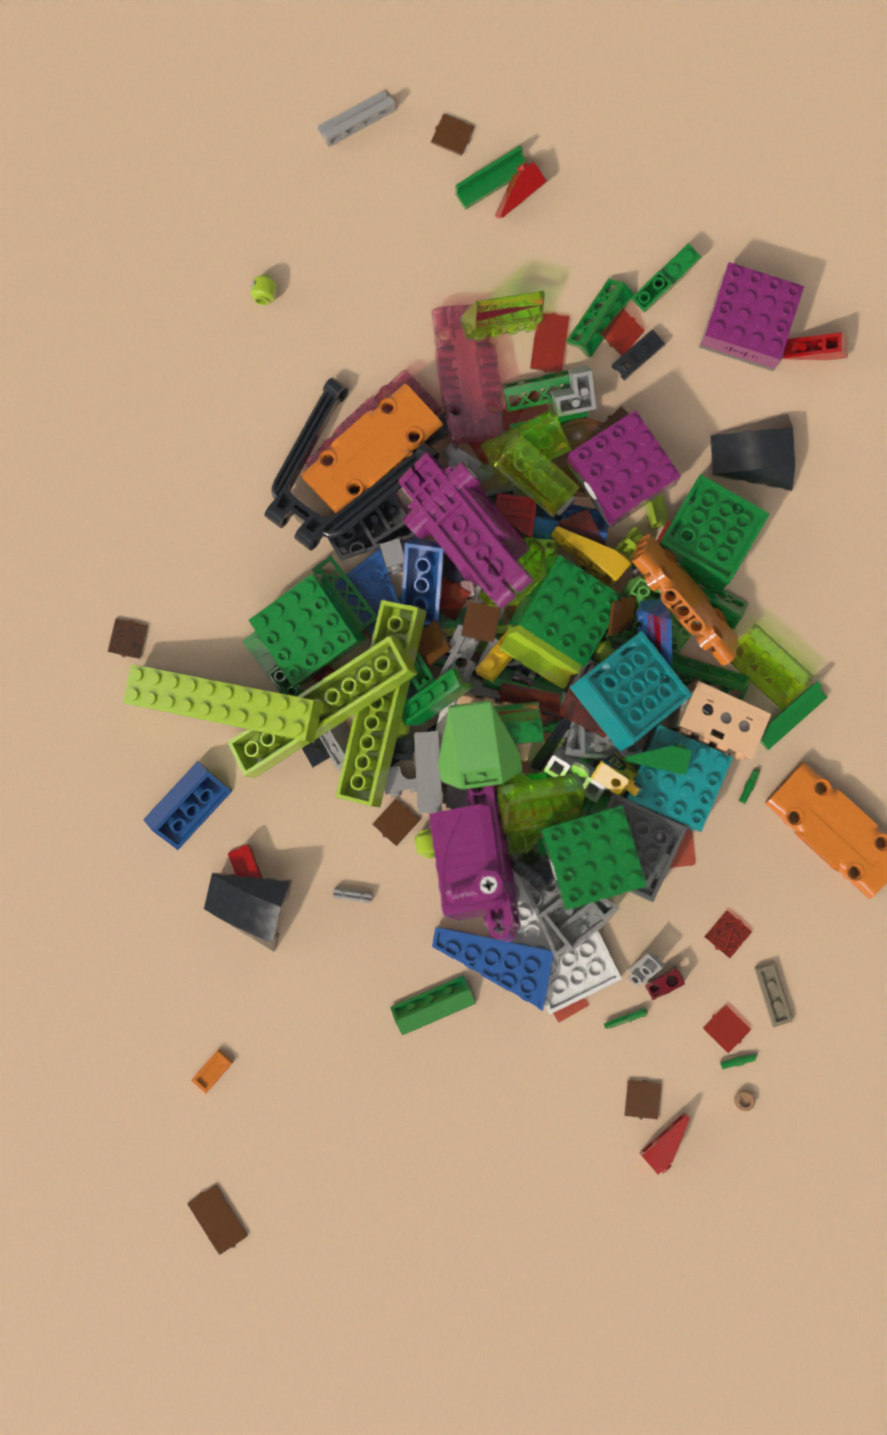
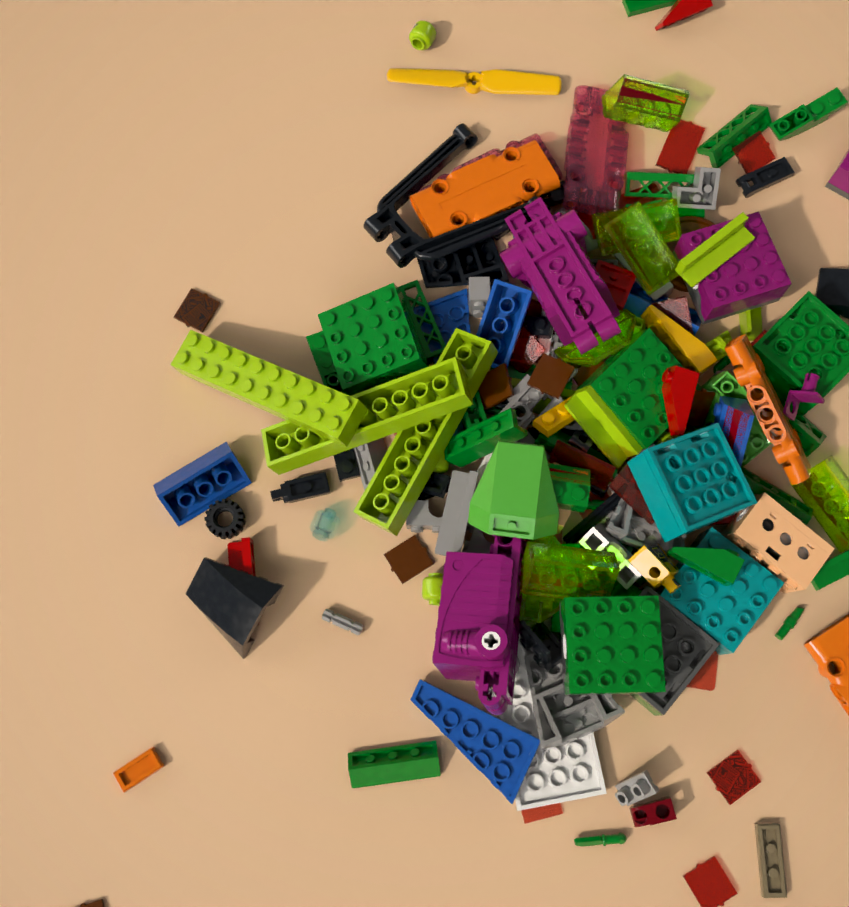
camera: 15 degrees right, 10 degrees down
(207, 826) = (234, 527): none -> black tyre
(281, 784) = (302, 488): none -> black hinge
(311, 812) = (325, 524): none -> clear light blue head
(346, 322) = (491, 81): none -> yellow piece
(601, 611) = (678, 395): none -> red slope
(603, 465) = (715, 251): none -> lime panel
(716, 578) = (807, 394): none -> magenta bracket

